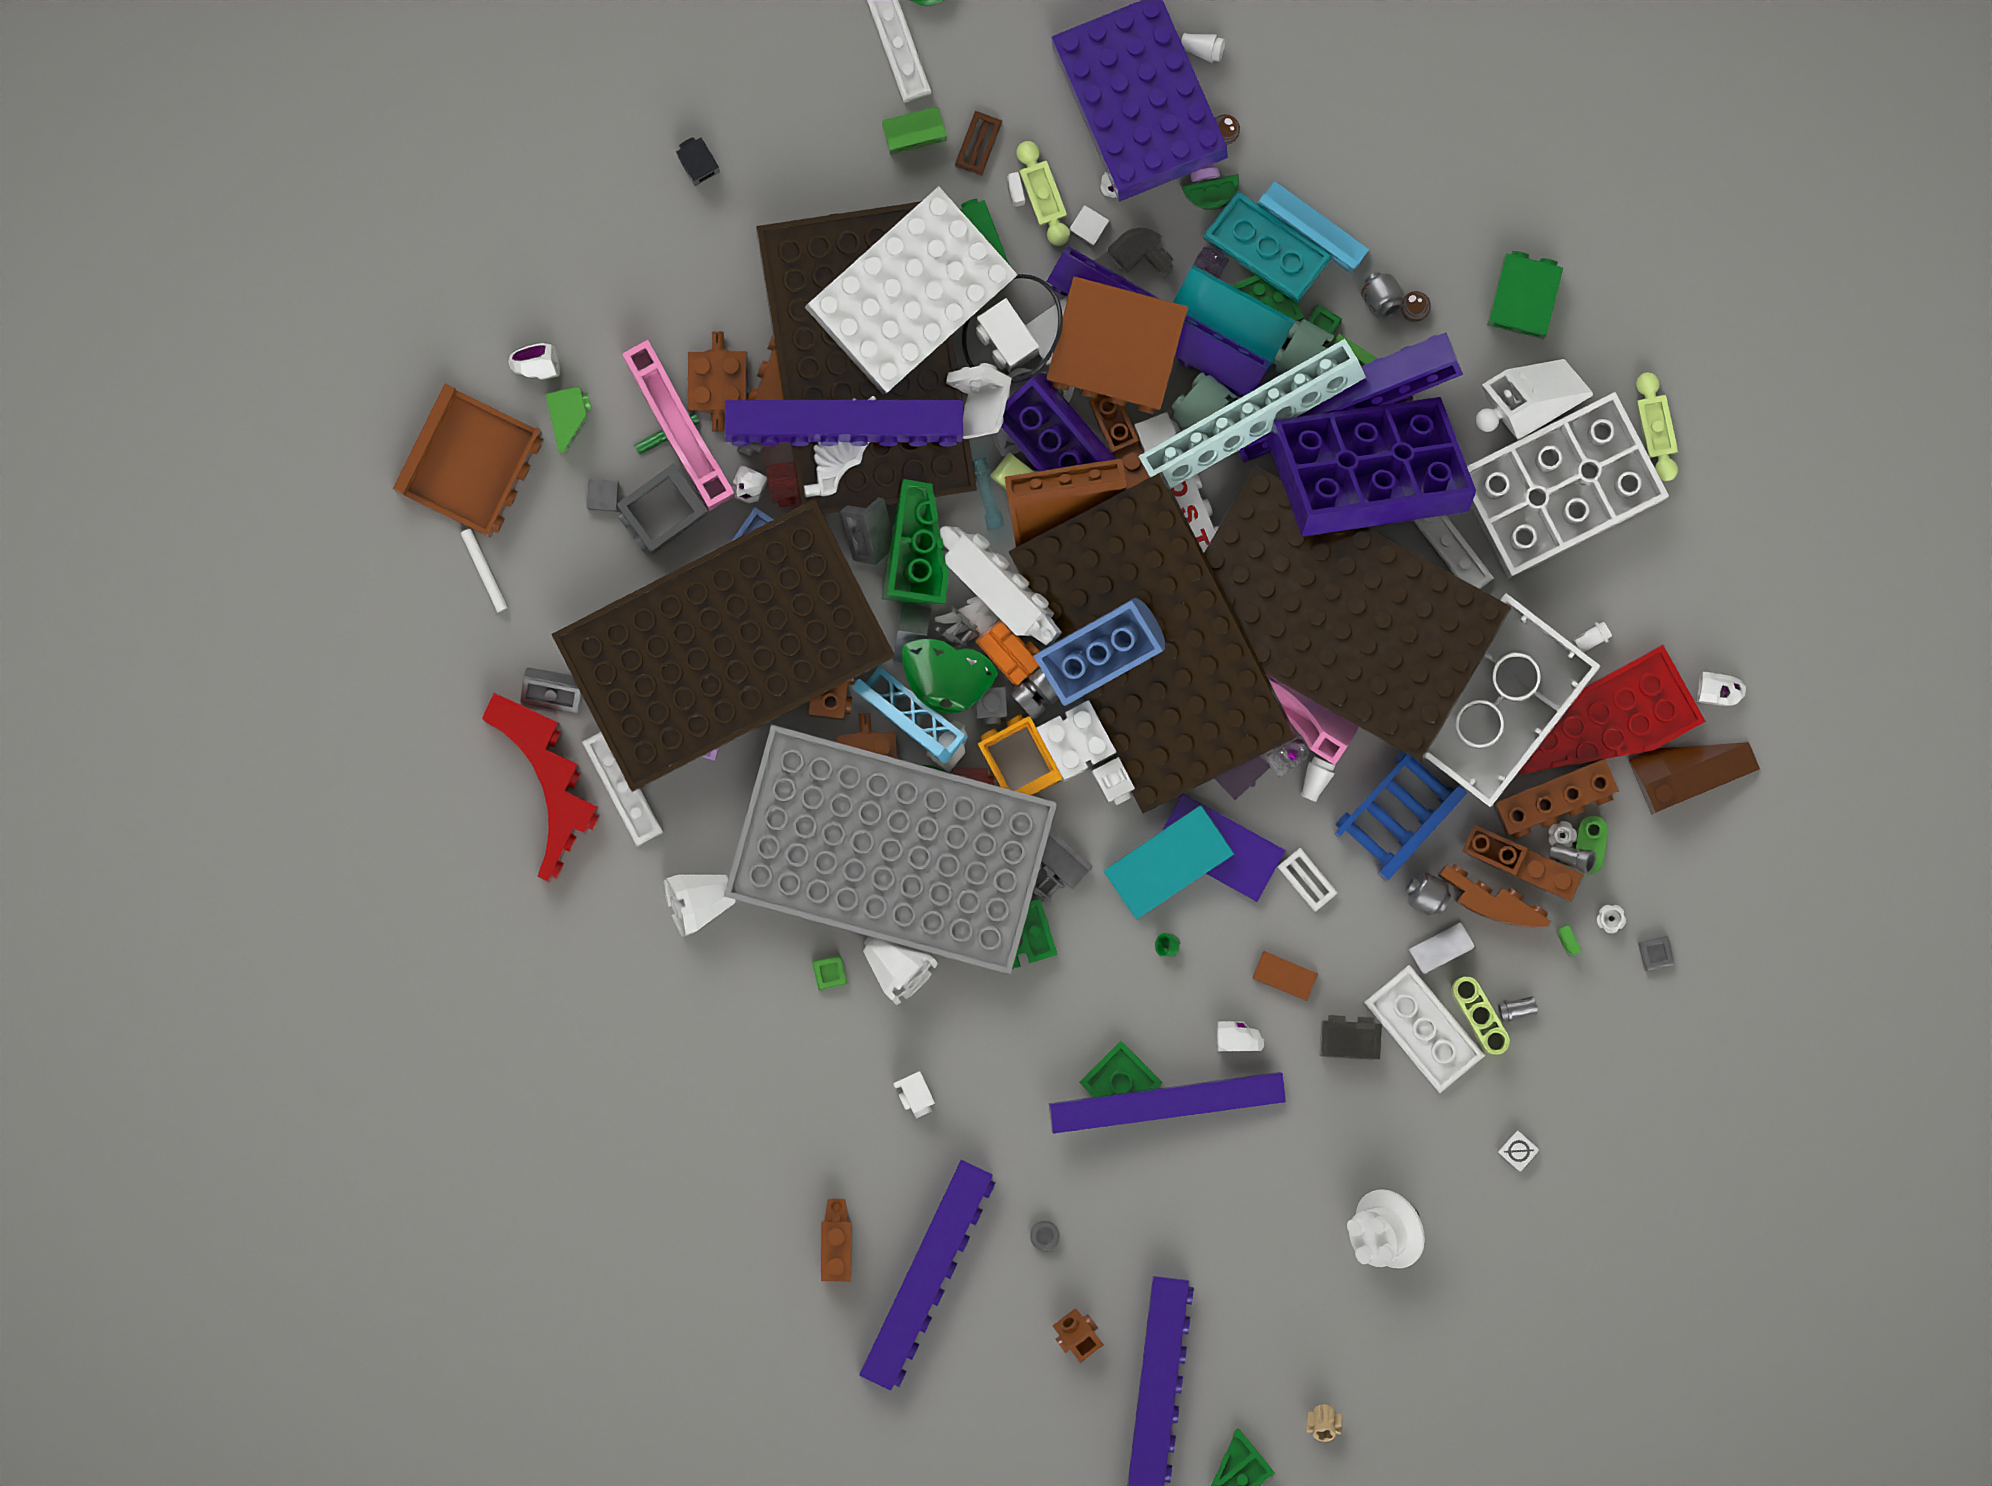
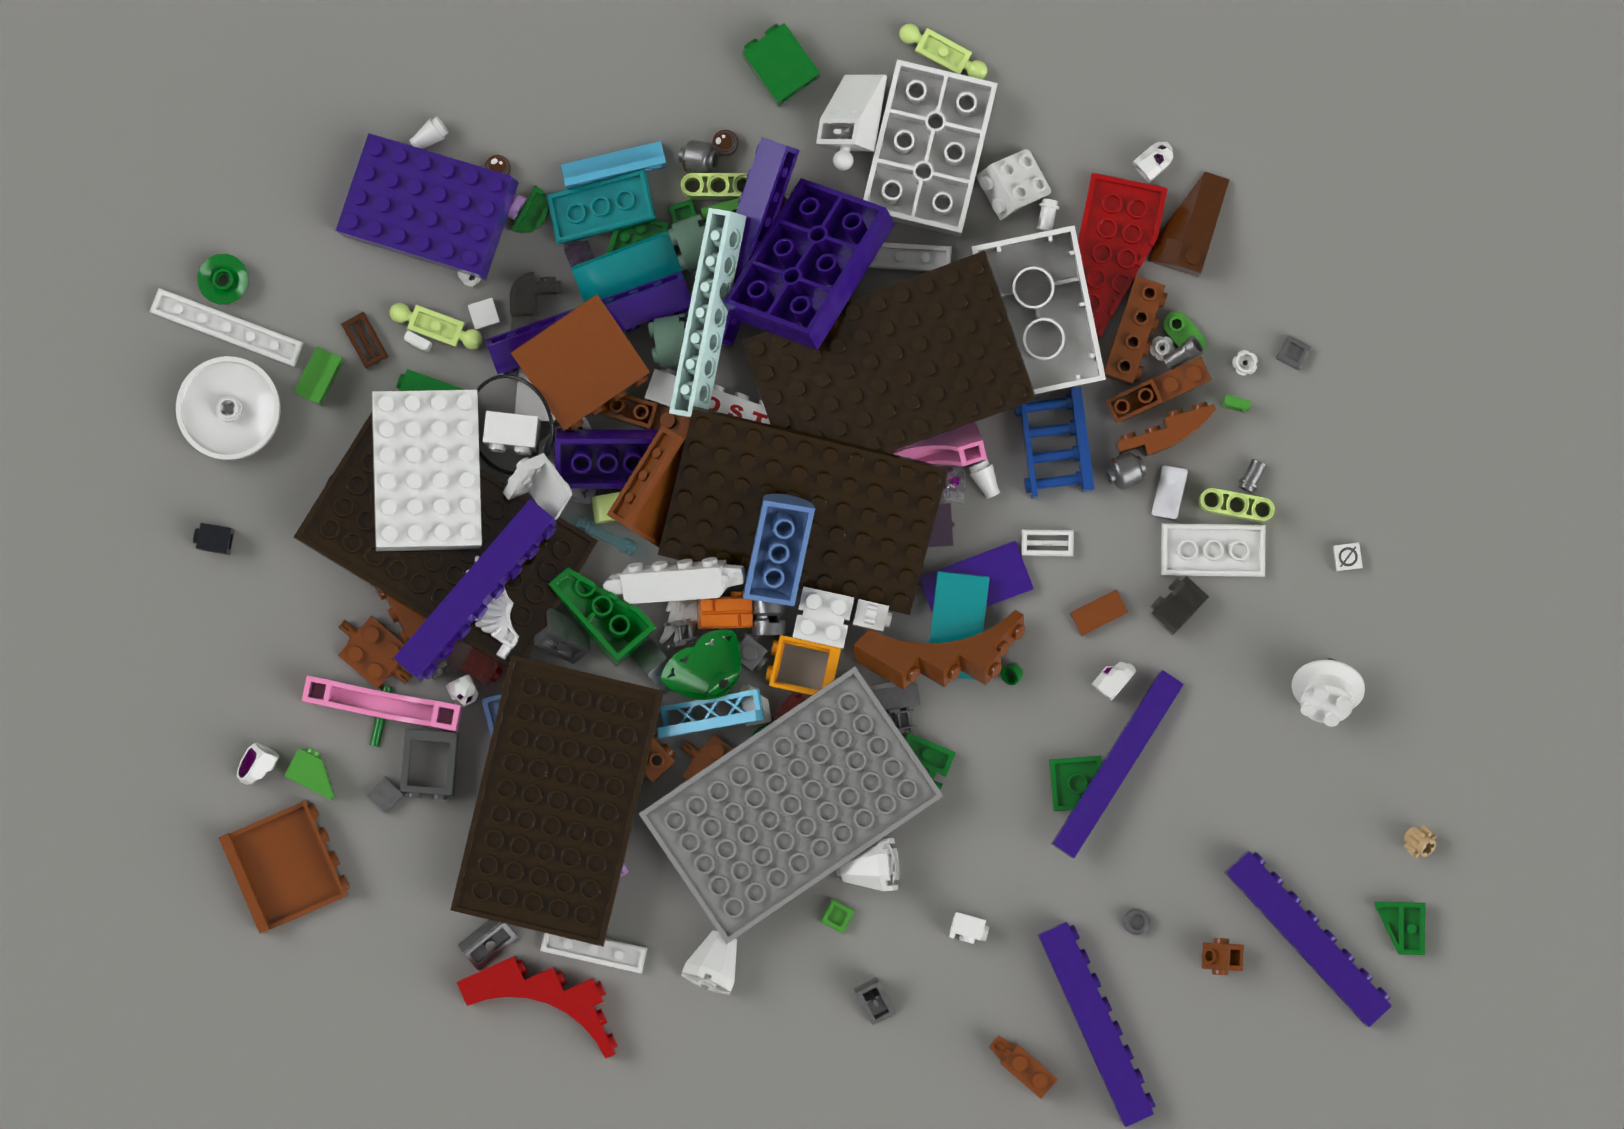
camera: 45 degrees left, 0 degrees up
(484, 570) = (367, 918): white bar -> none
(783, 1066) = (874, 1000): none -> flat silver slope
(819, 76) = (228, 408): none -> white dish
(1124, 874) = (941, 662): none -> dark orange arch
(1369, 318) = (707, 179): none -> yellowish green beam
(1595, 584) = (1013, 183): none -> white bracket

